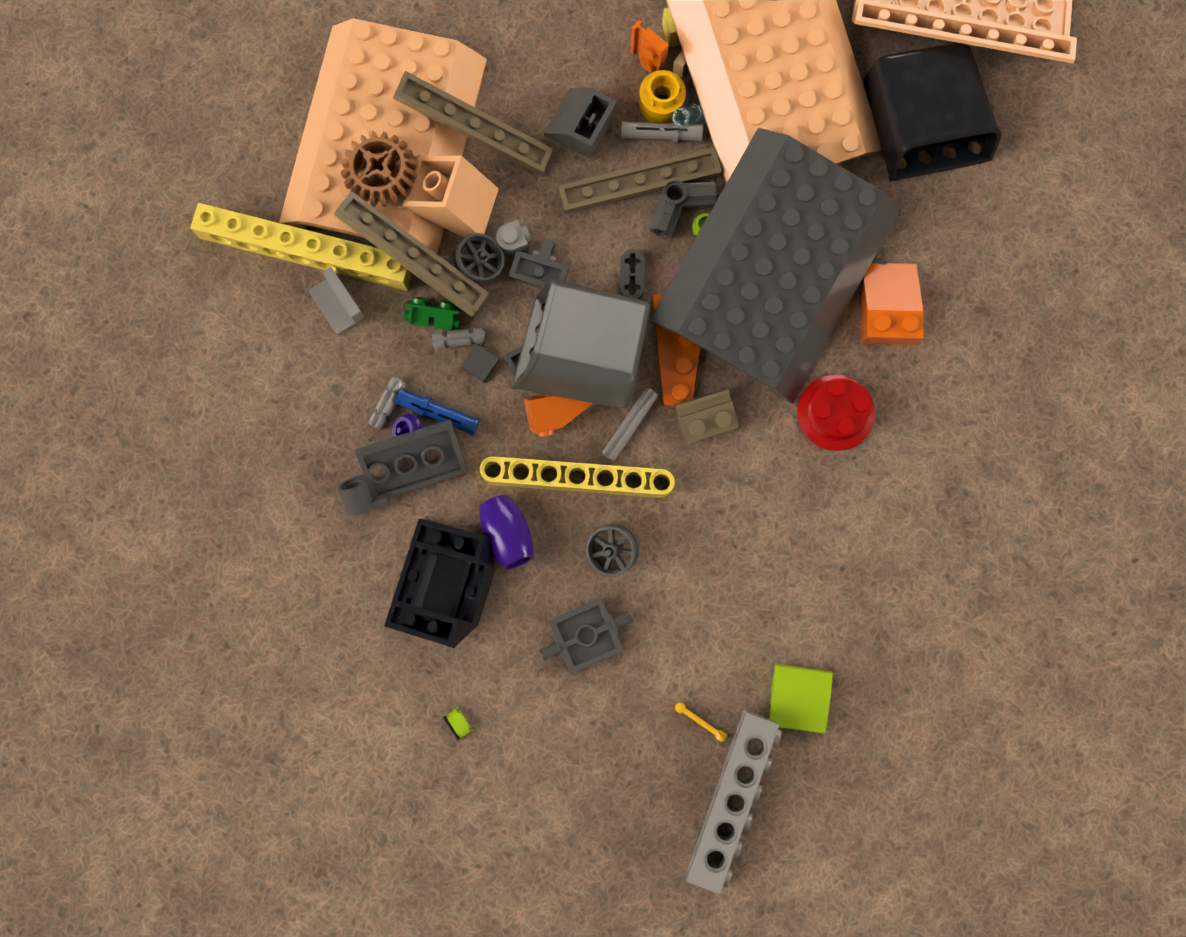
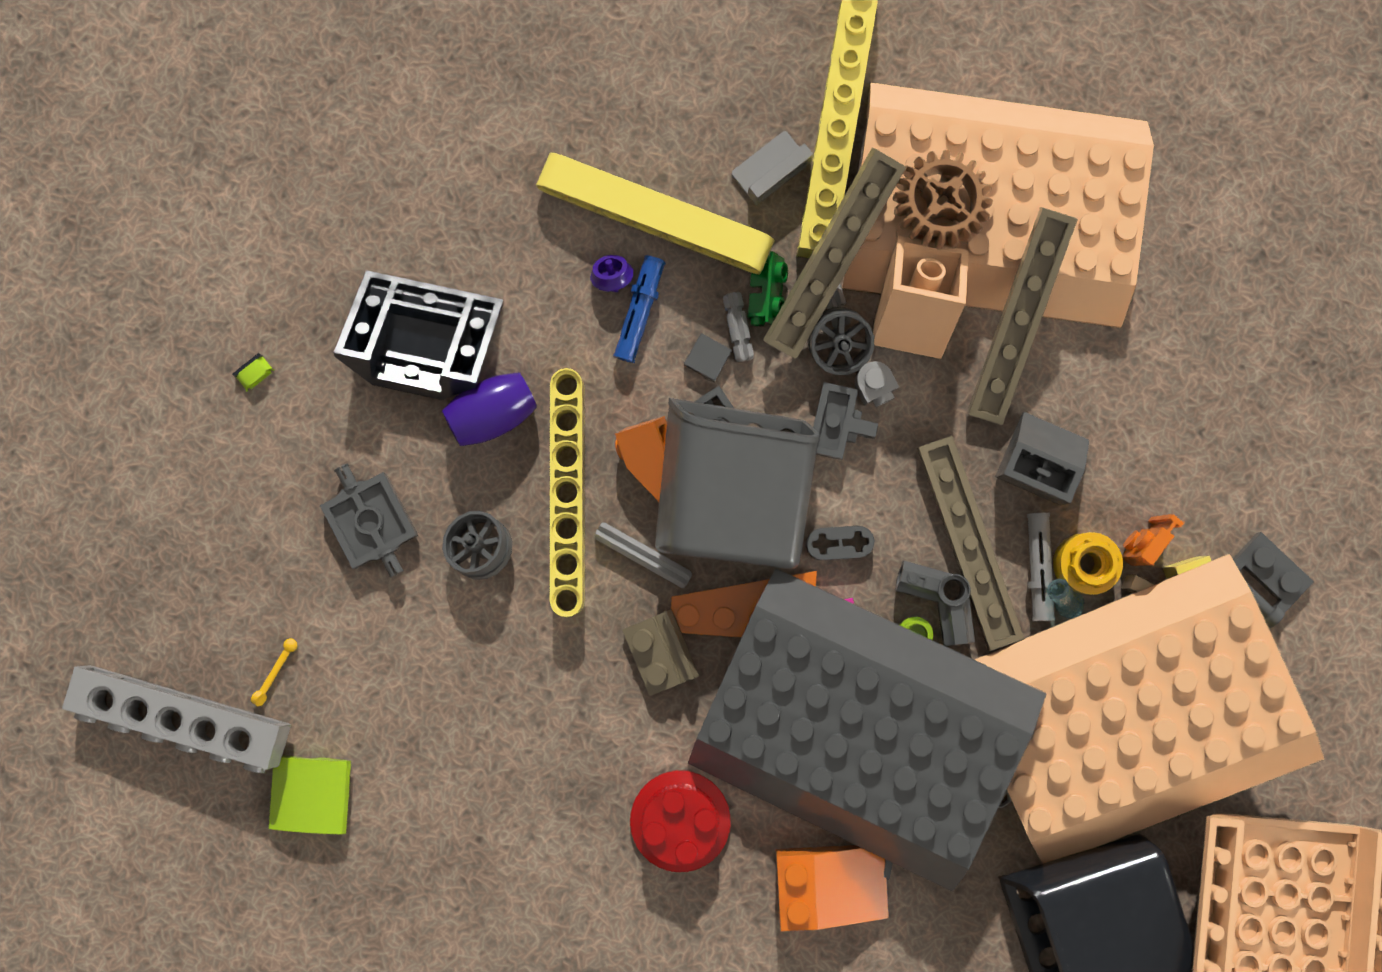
camera: 85 degrees right, 5 degrees up
(363, 392) = (655, 213): none -> light yellow beam
(368, 491) = (529, 235): dark grey hinge -> none
(386, 403) = (645, 244): light grey axle -> none

